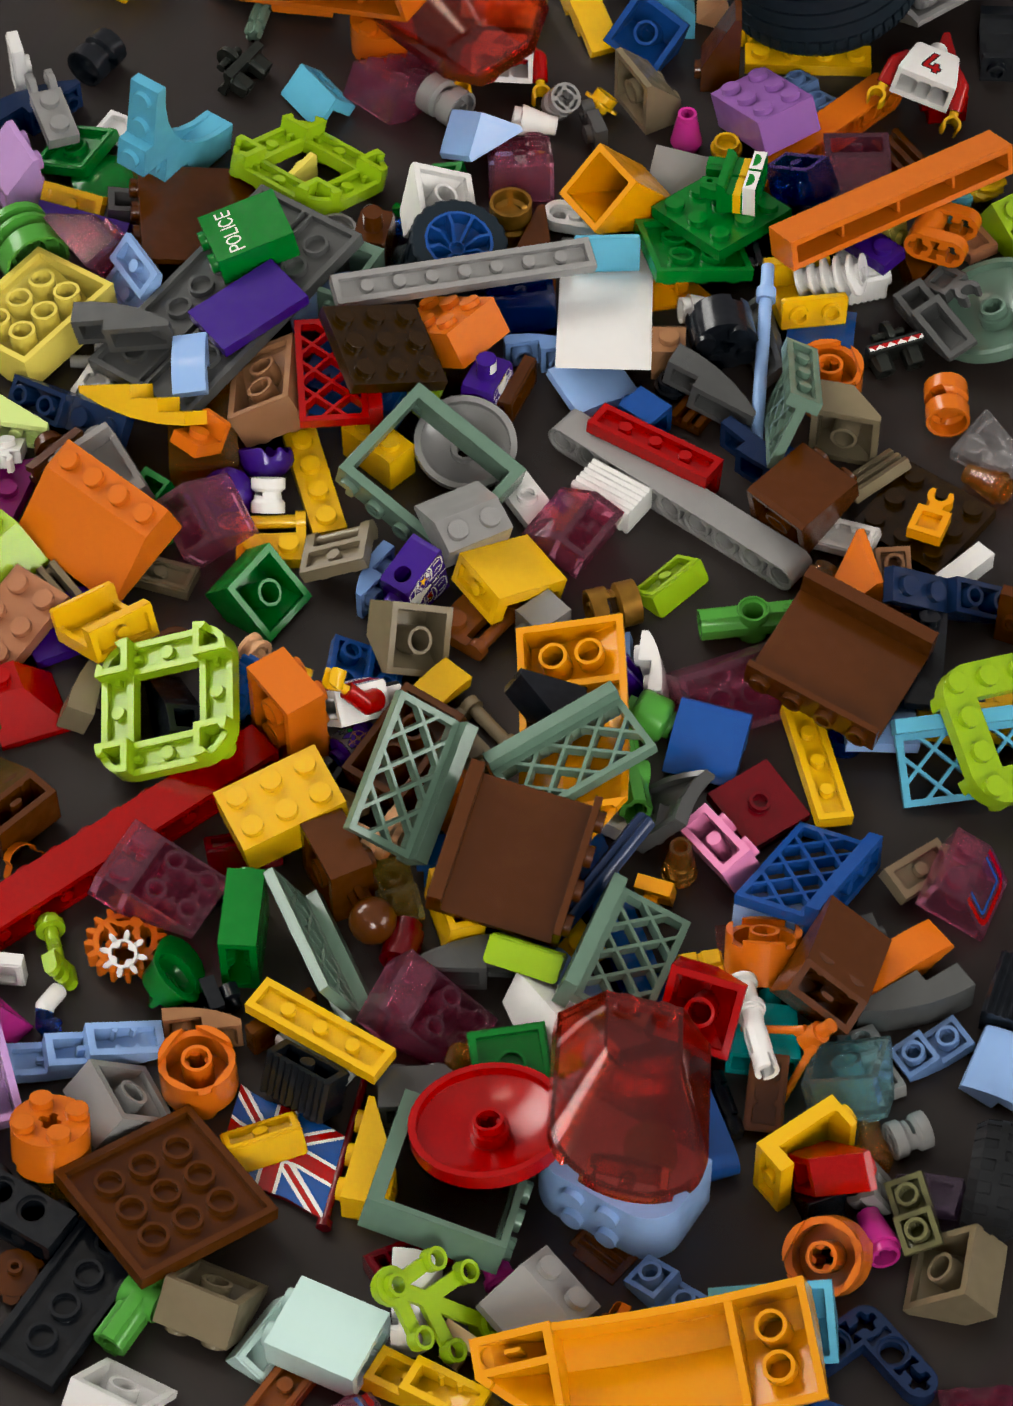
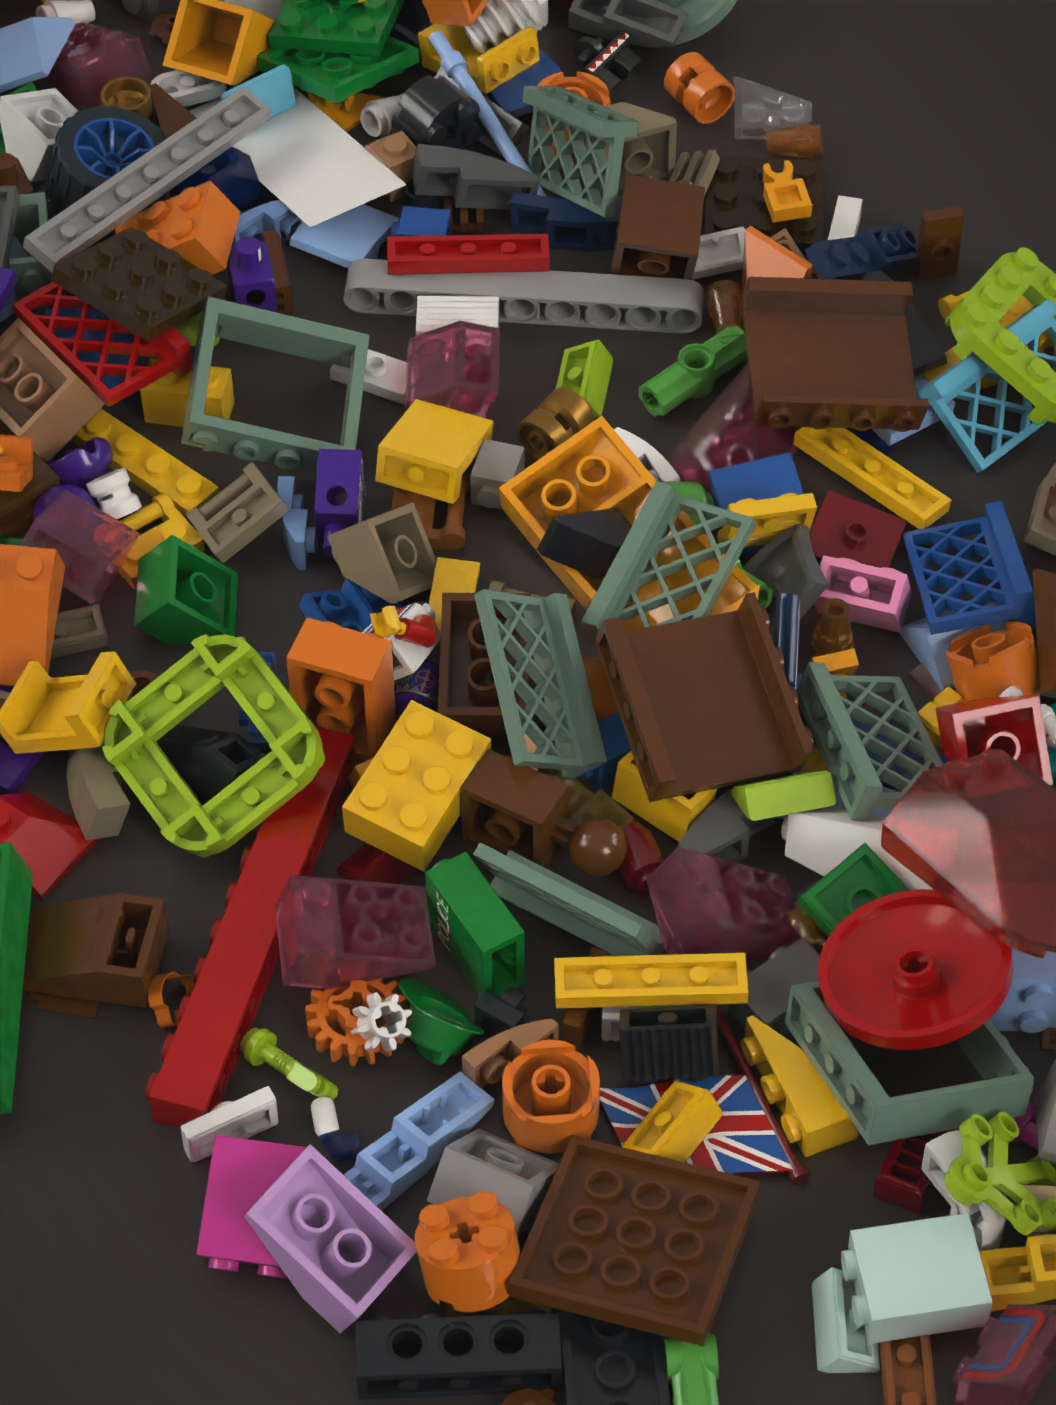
camera: 35 degrees left, 0 degrees up
(208, 1304) = (768, 1324): dark tan slope -> none
(440, 457) = (291, 374): light grey dish -> none
(464, 520) = (354, 410): light grey slope -> none
(687, 755) = (771, 516): none -> yellow plate

